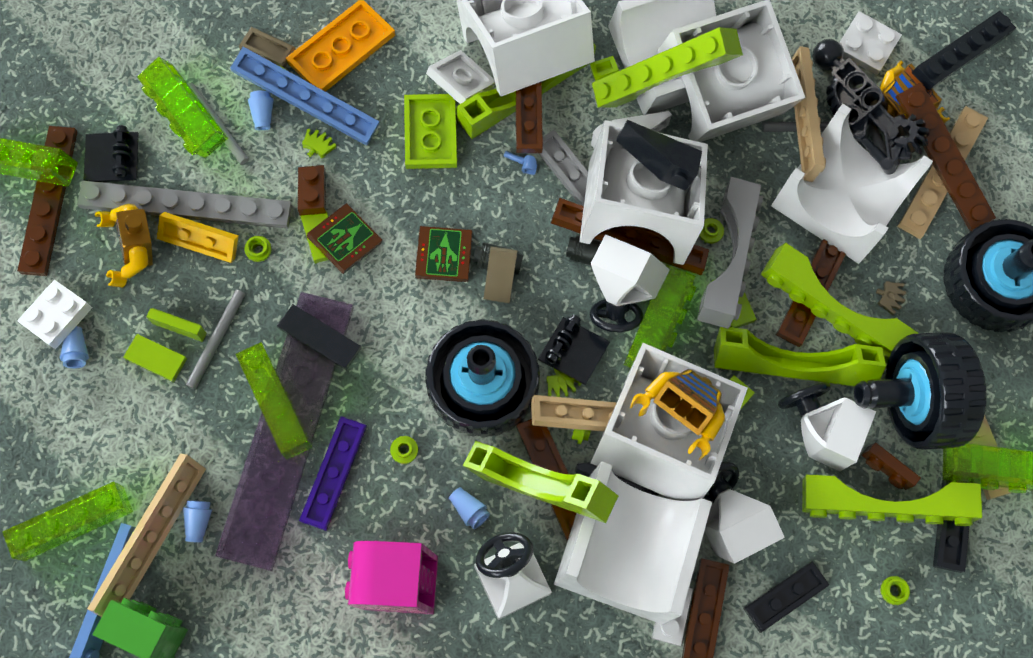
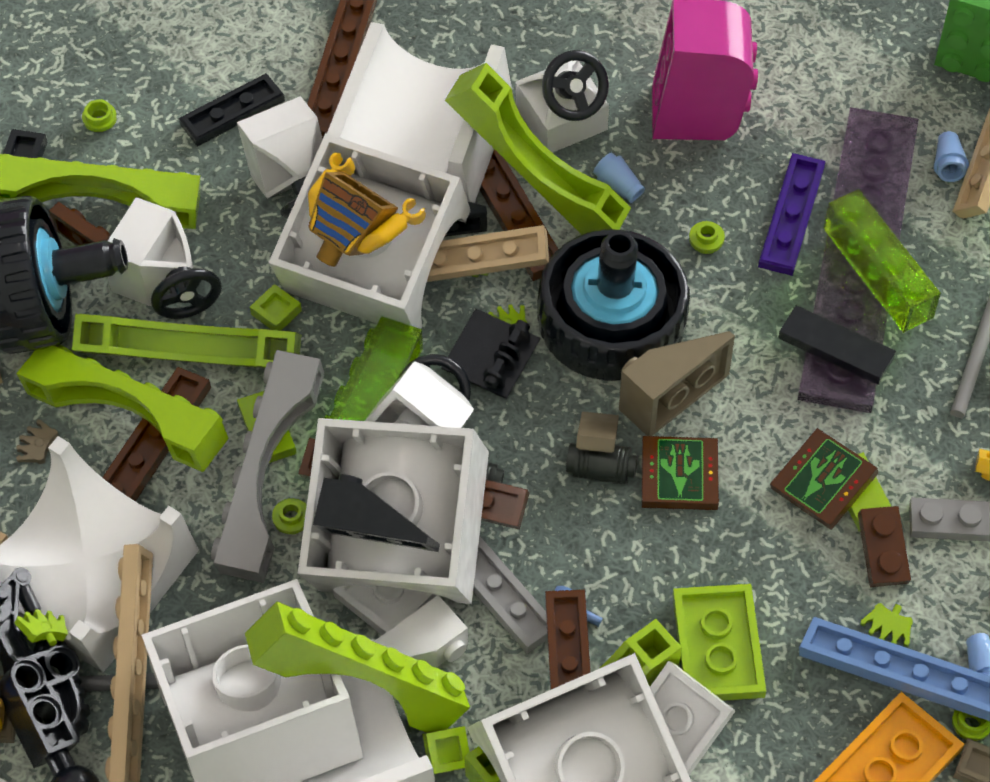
camera: 175 degrees left, 15 degrees down
(254, 242) = (945, 458): lime plate -> none
(445, 307) = (672, 379): none -> dark tan slope
(865, 131) = (42, 627): none -> lime piece

